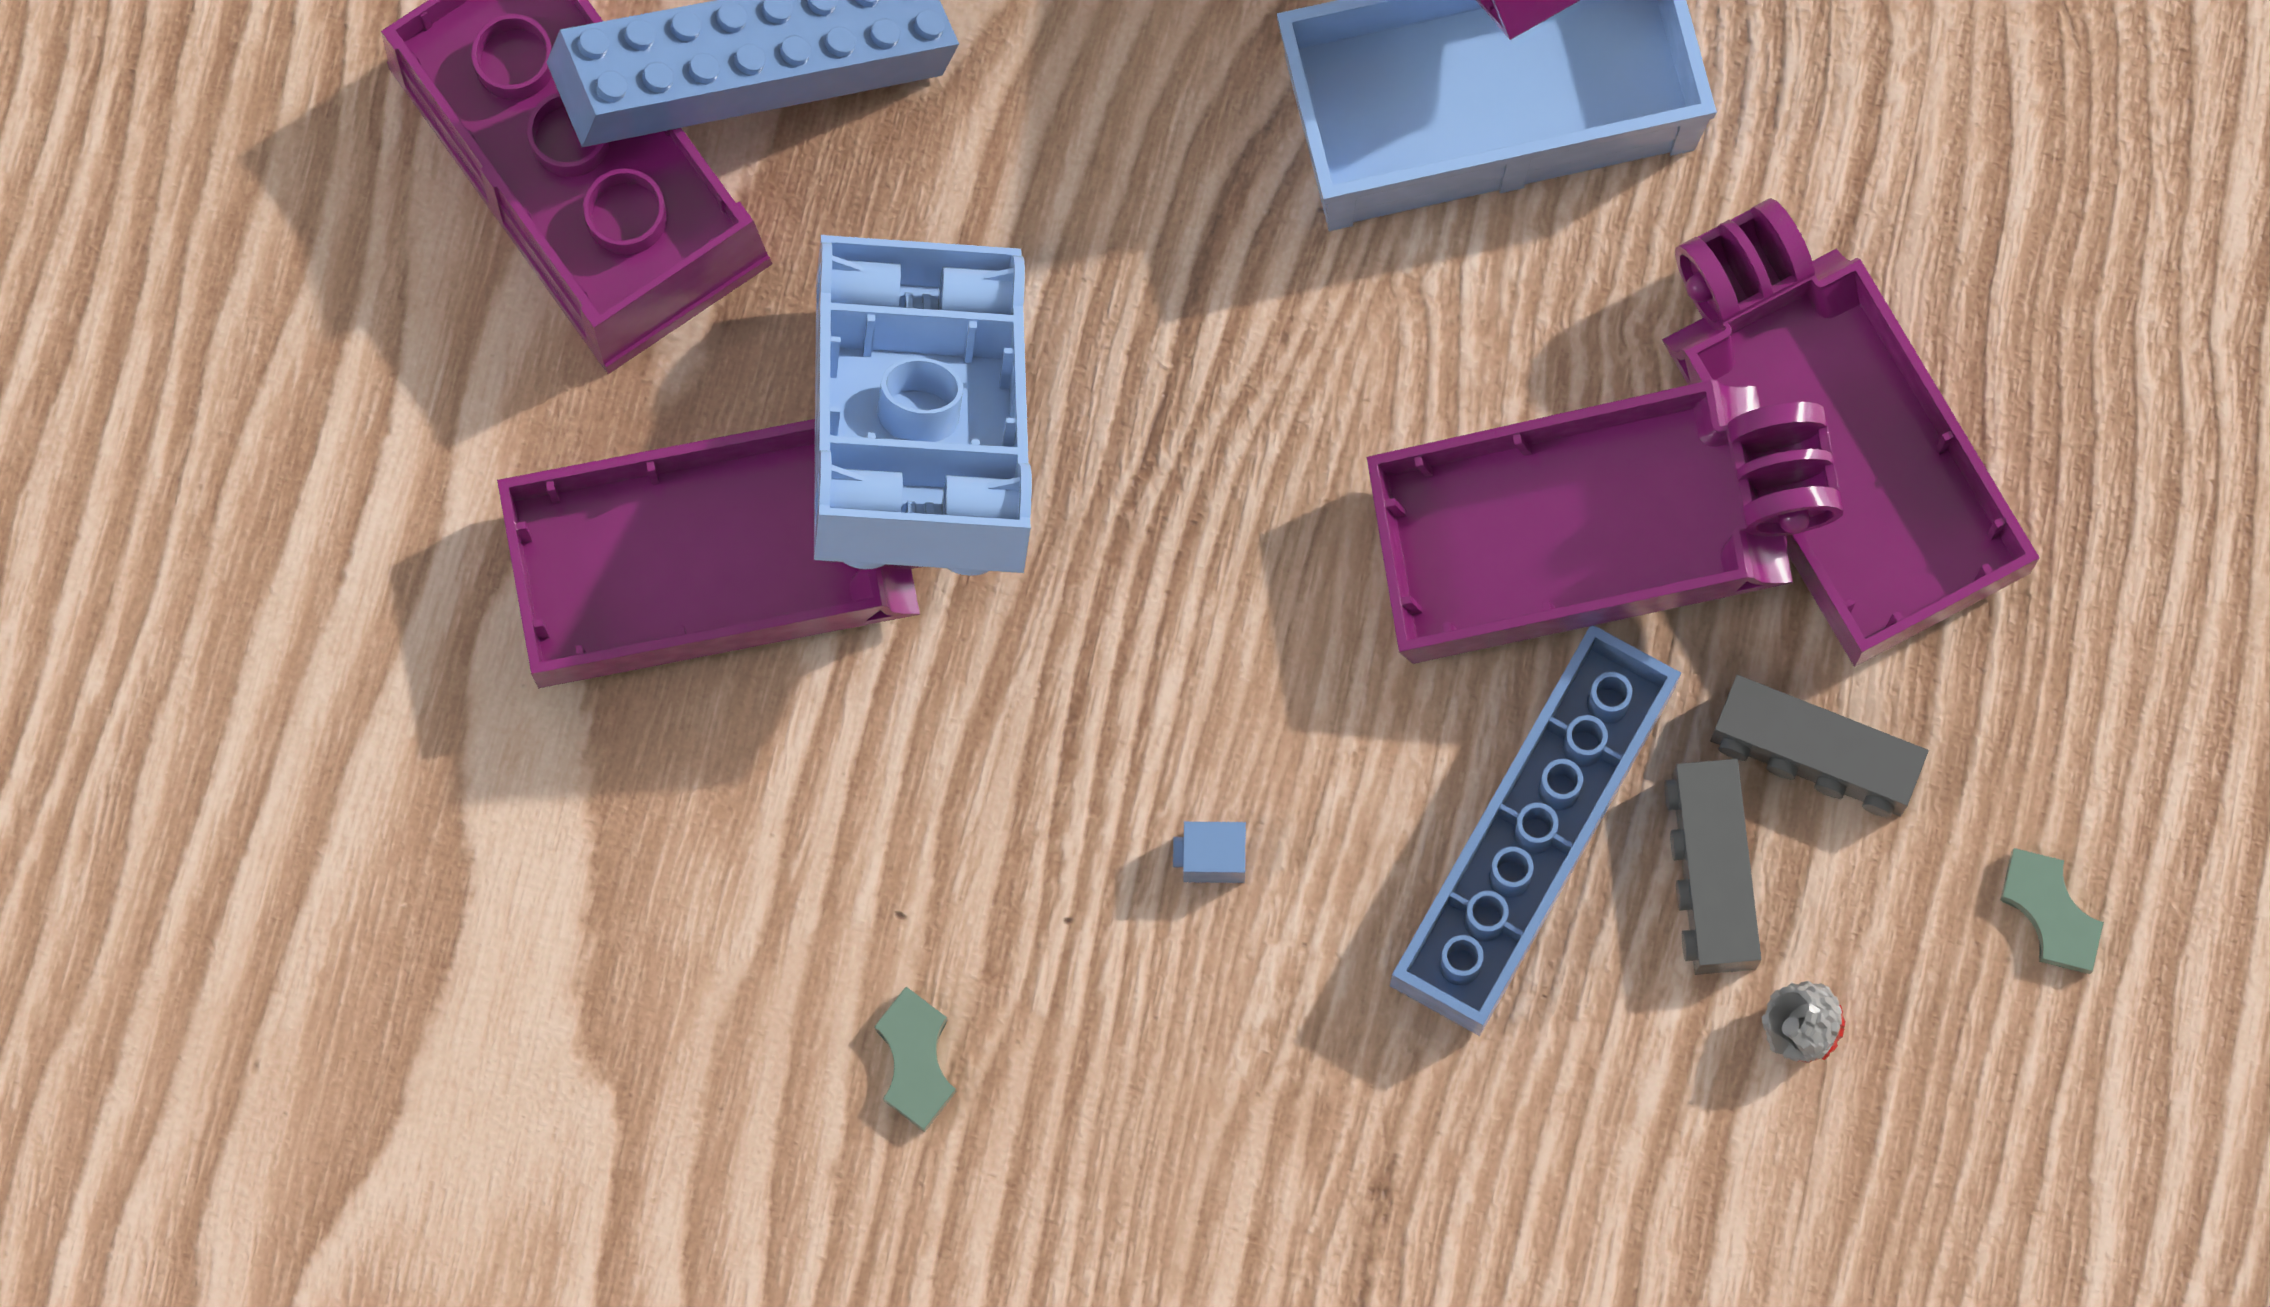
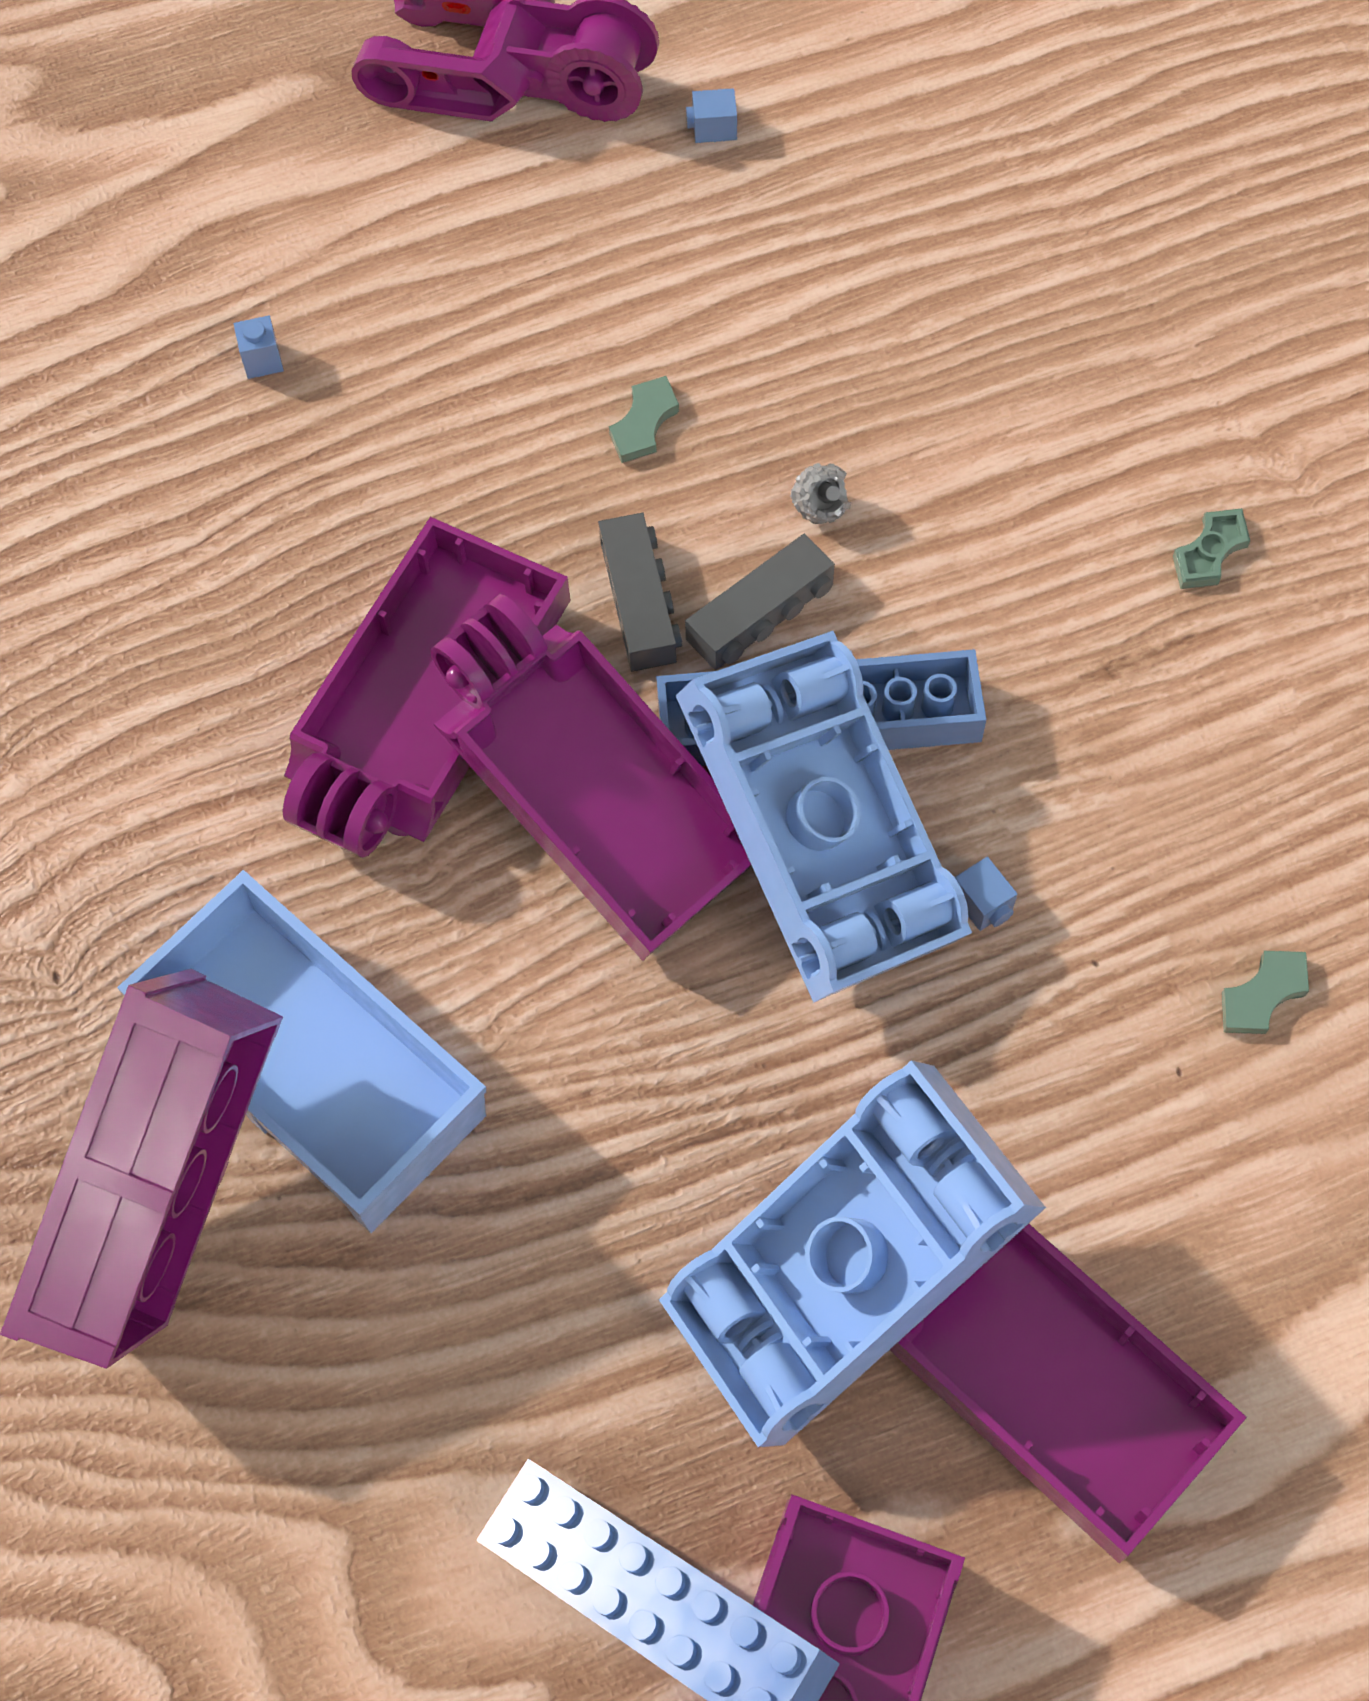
camera: 125 degrees left, 10 degrees down
(1387, 706) = (823, 814): none -> light blue piece

